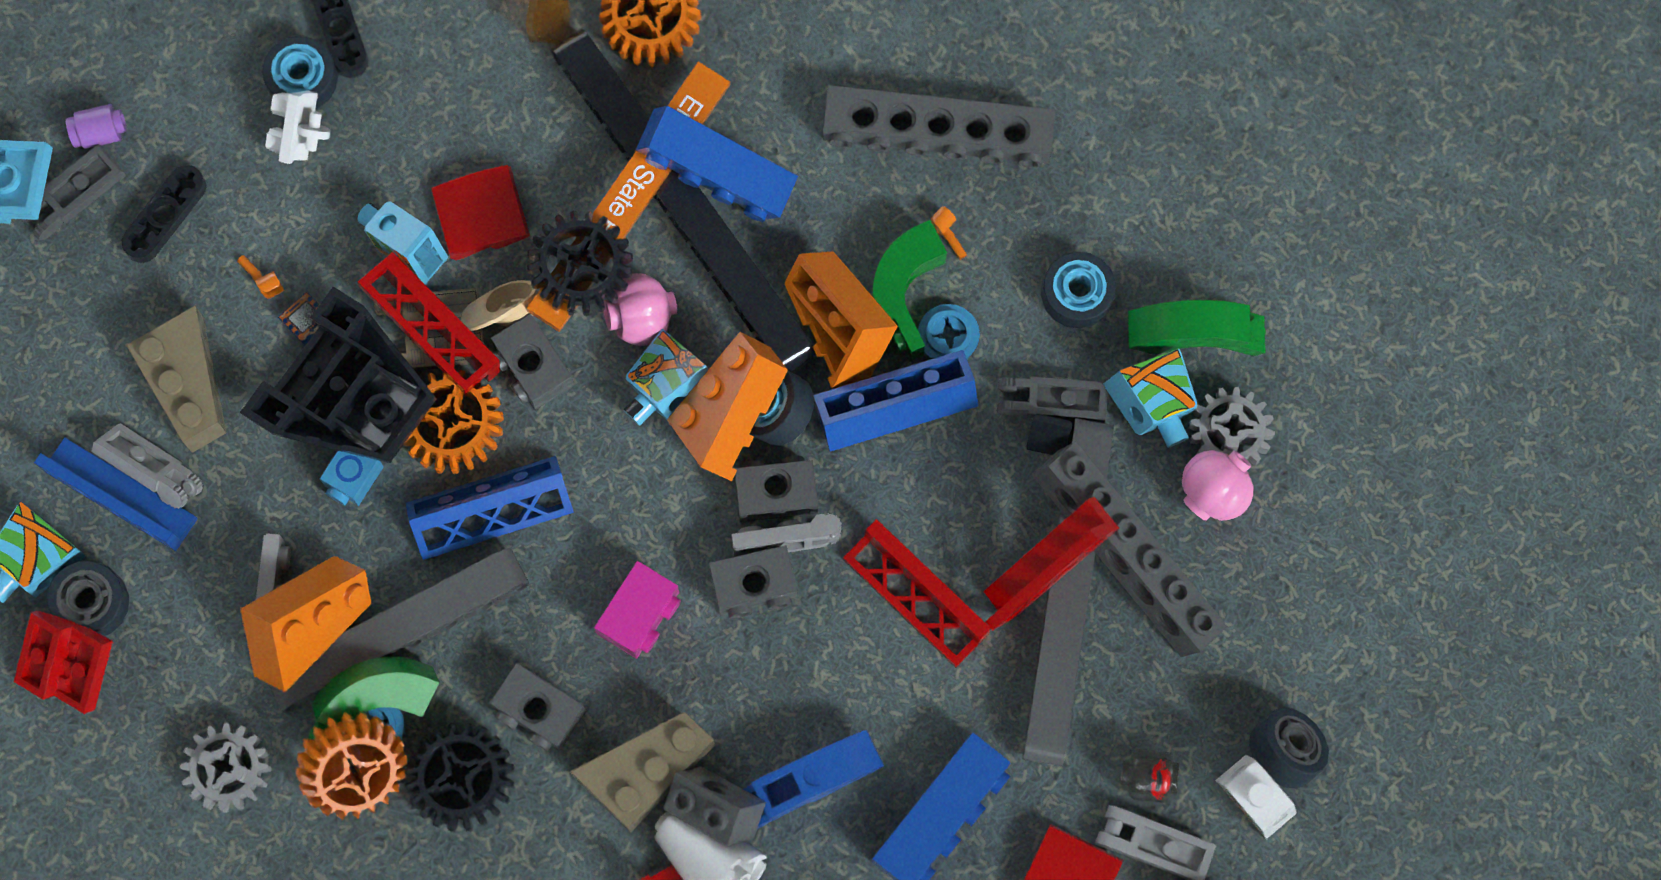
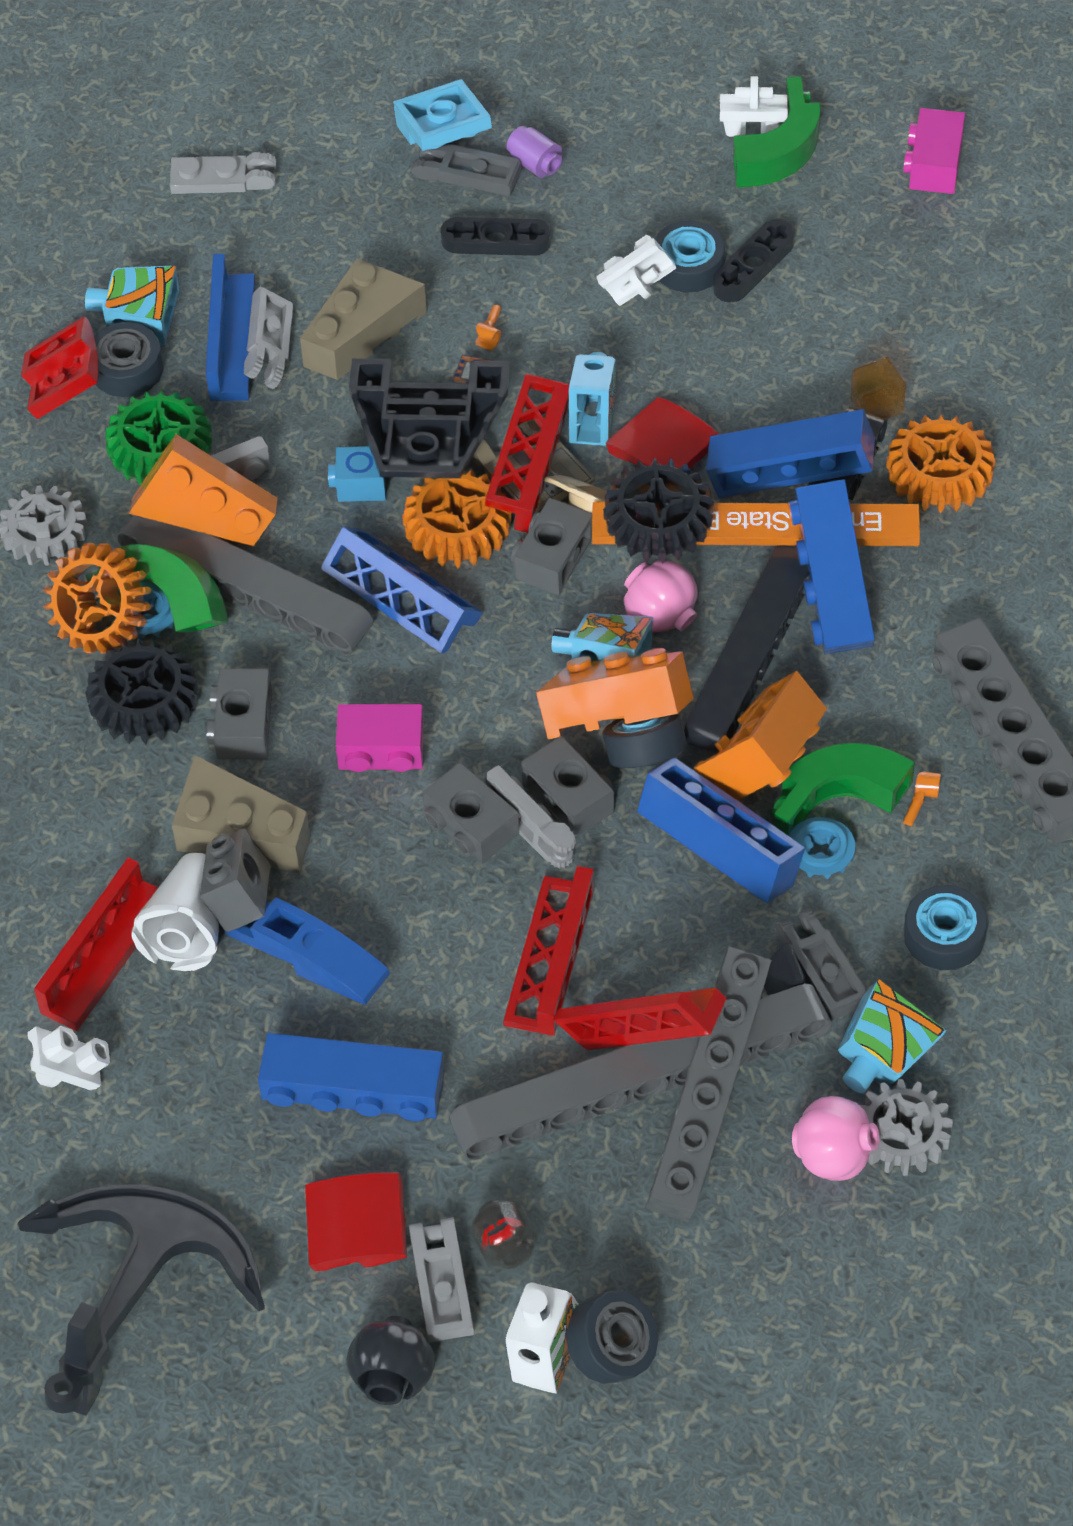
camera: 65 degrees right, 20 degrees down
(185, 630) = (147, 426): none -> green gear
(577, 124) = (791, 453): none -> blue brick
(1196, 324) = (988, 1041): green arch -> none

